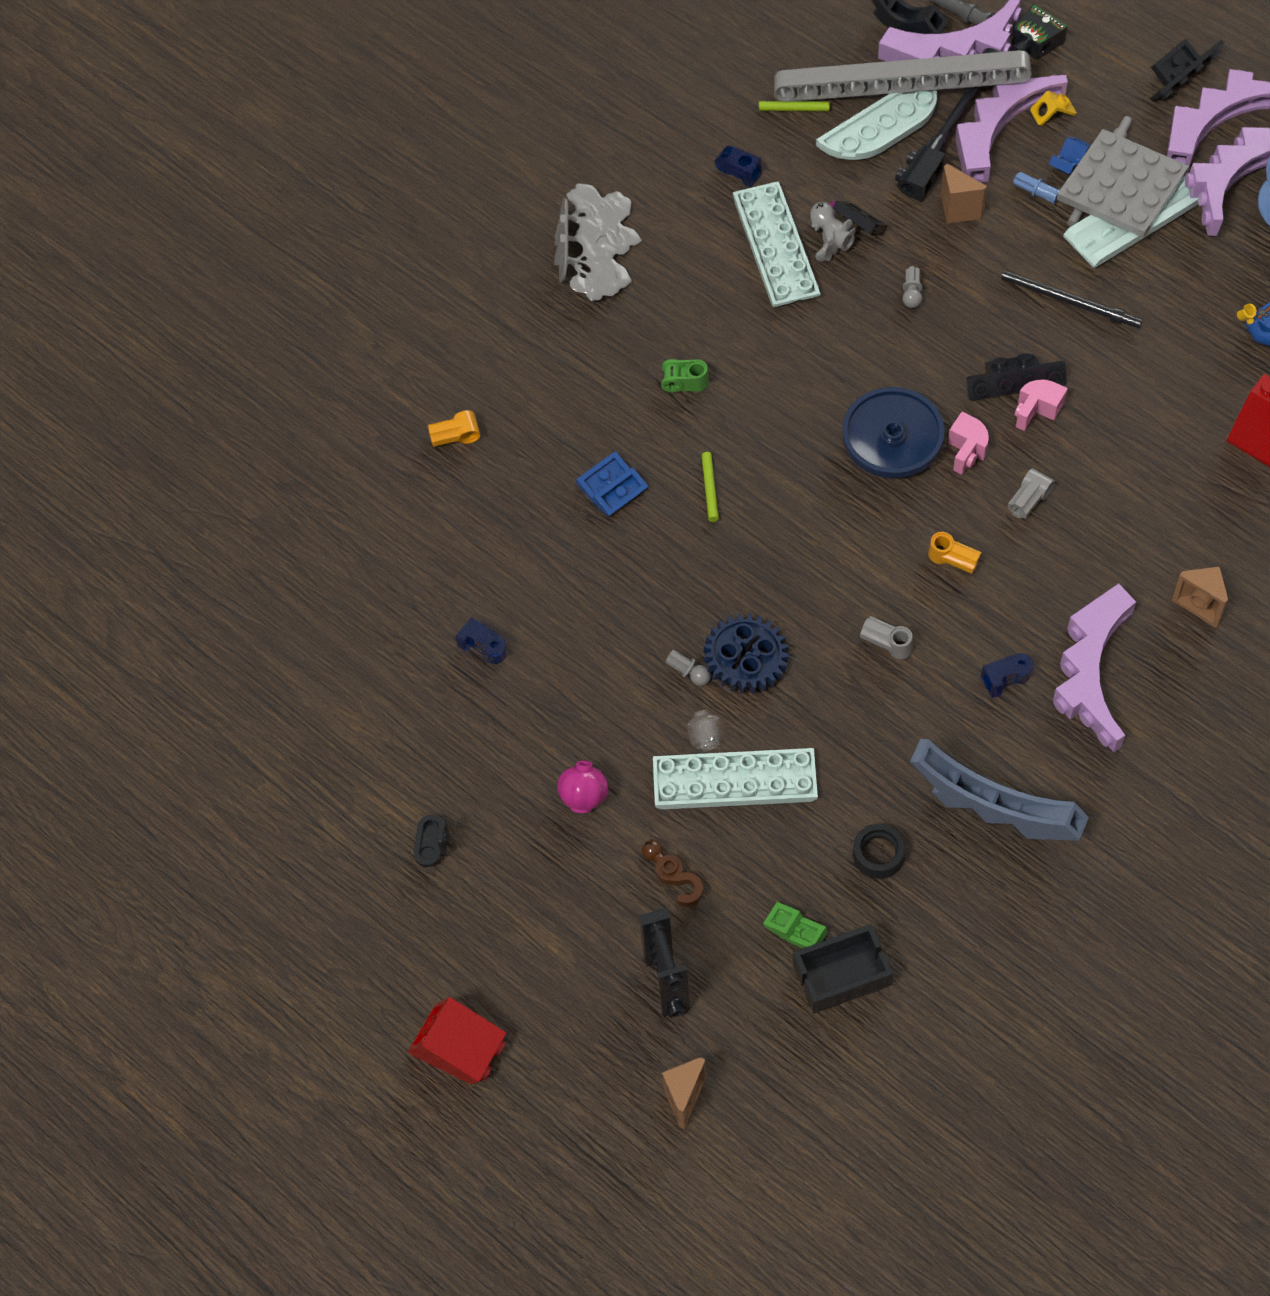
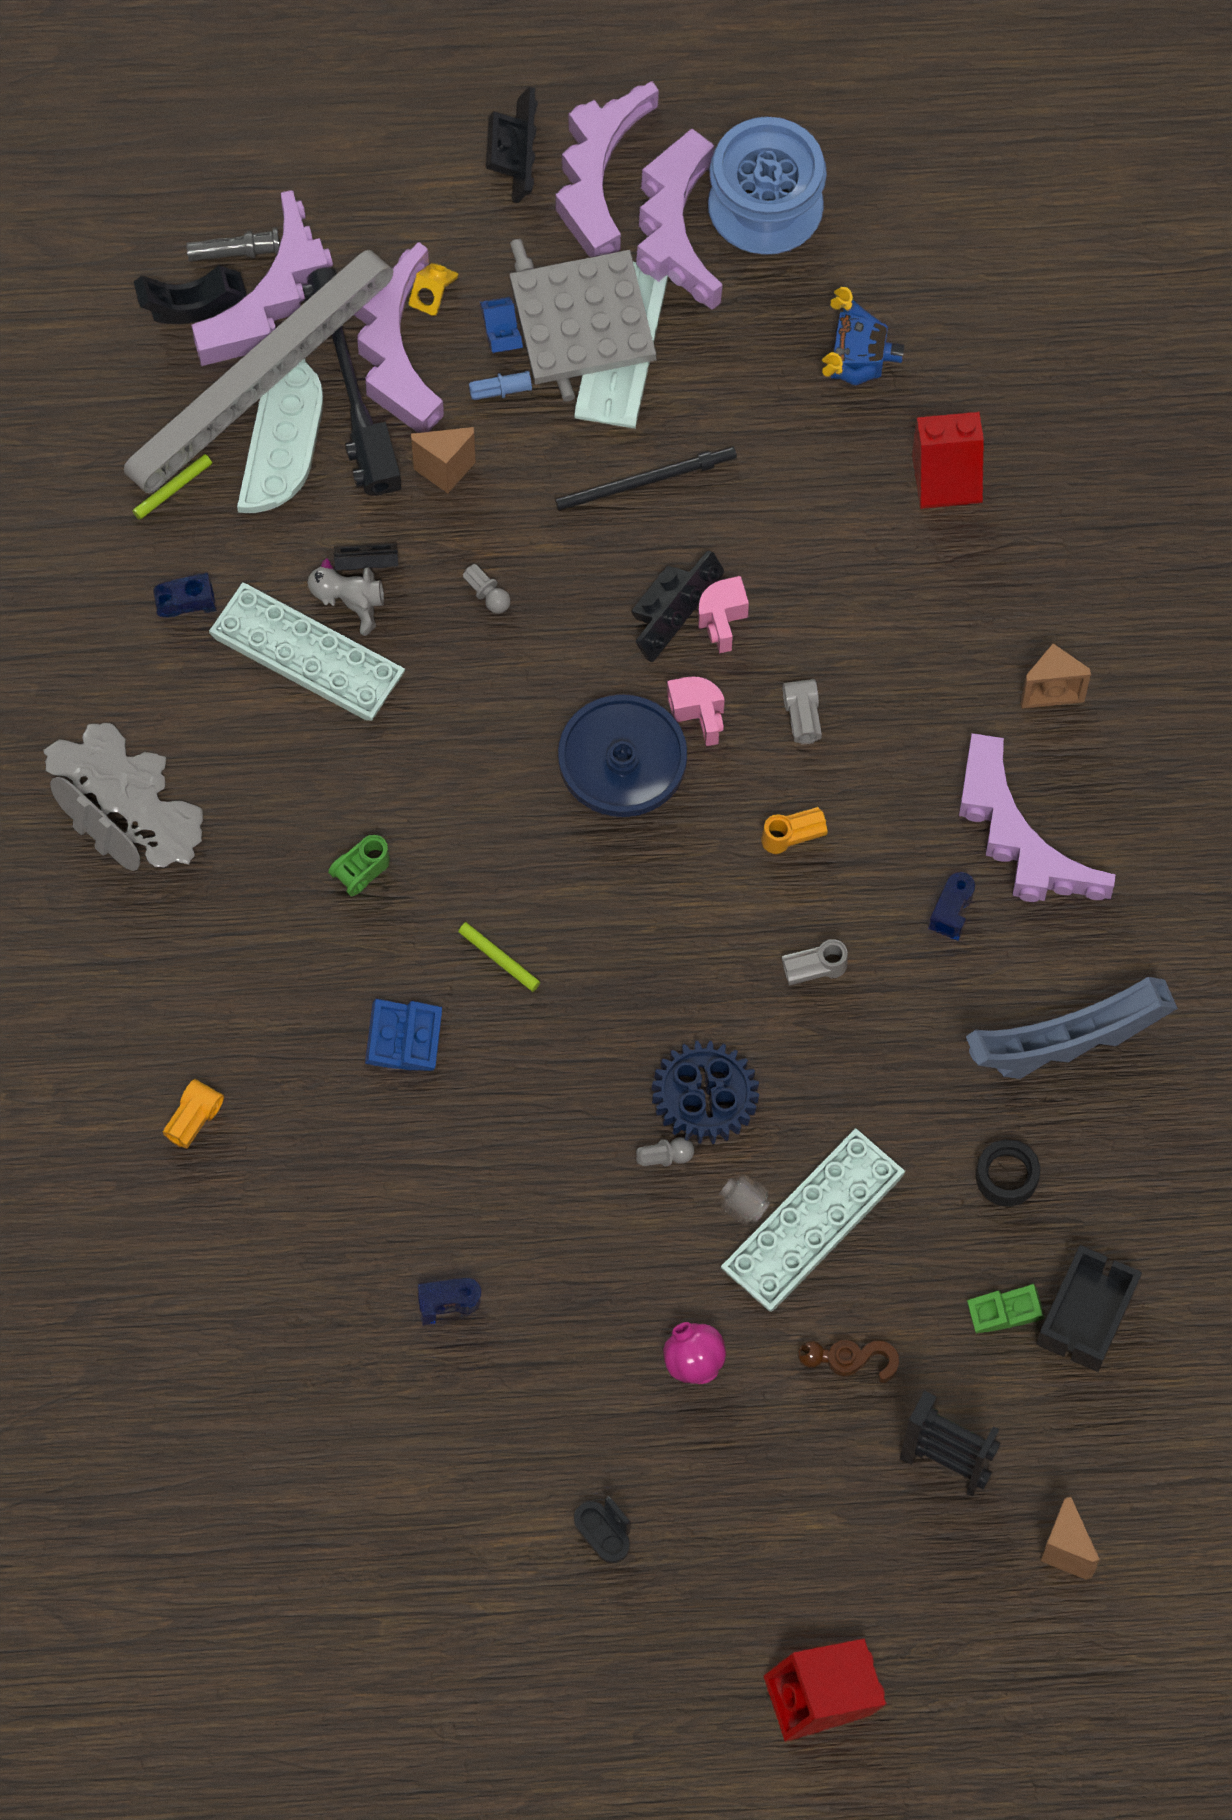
camera: 50 degrees left, 5 degrees up
(1038, 33) = (340, 216): black torso -> none

